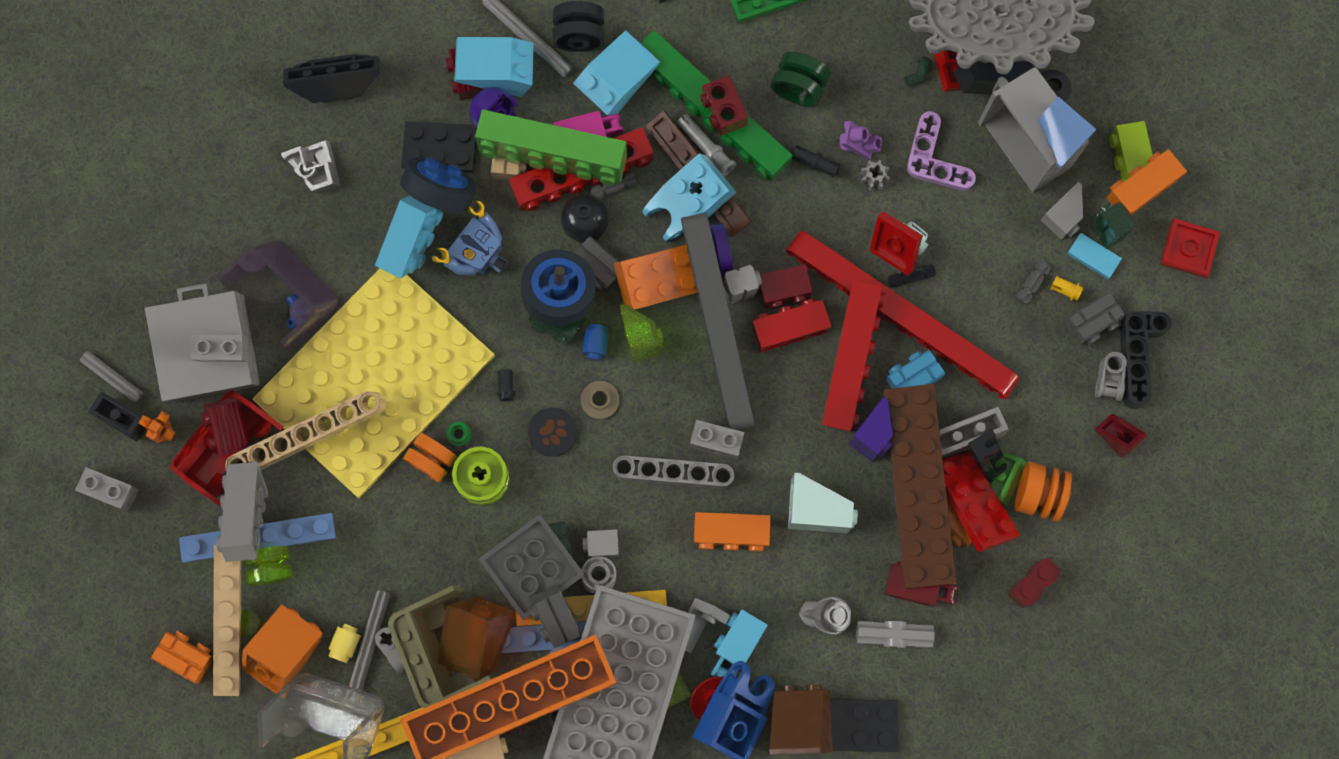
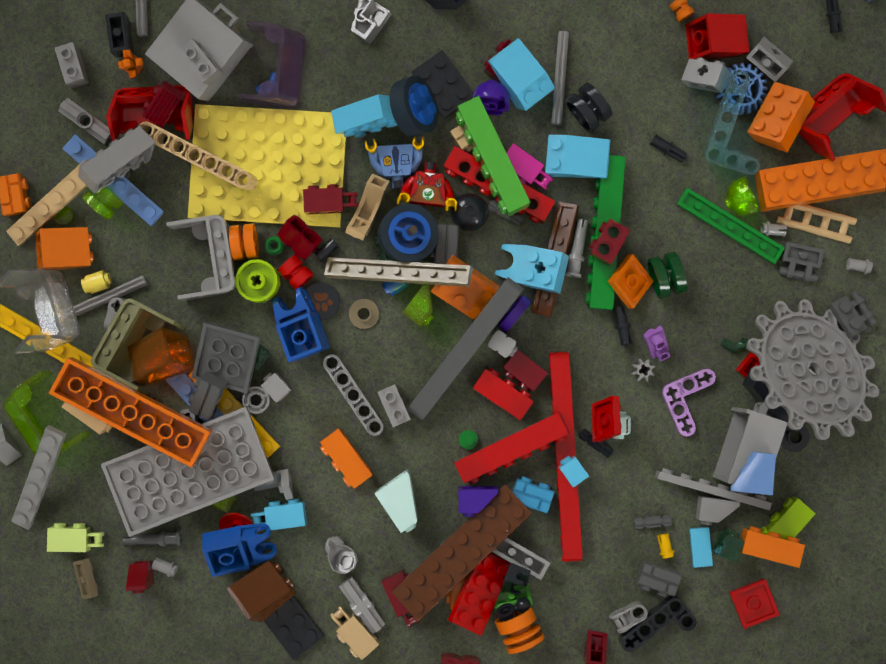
camera: 55 degrees right, 10 degrees up
(160, 524) = (78, 115): none -> light grey piece
(399, 477) = (216, 232): none -> light grey windscreen
(458, 341) = (327, 200): none -> dark red brick
(471, 400) = (299, 237): none -> dark red brick
(498, 308) = (368, 207): none -> tan arch
(503, 431) = (295, 272): none -> red wheel
(530, 236) = (428, 189): none -> torso
(554, 468) = (299, 322): none -> blue brick
(587, 325) = (399, 271): none -> plate
(778, 118) = (630, 281): none -> orange plate
(809, 395) = (468, 439): none -> green plate
(919, 664) = (354, 633): none -> tan brick
(922, 313) = (573, 470): none -> medium azure brick
(1016, 486) = (509, 611): none -> black plate
(1052, 193) = (720, 490): none -> light grey plate

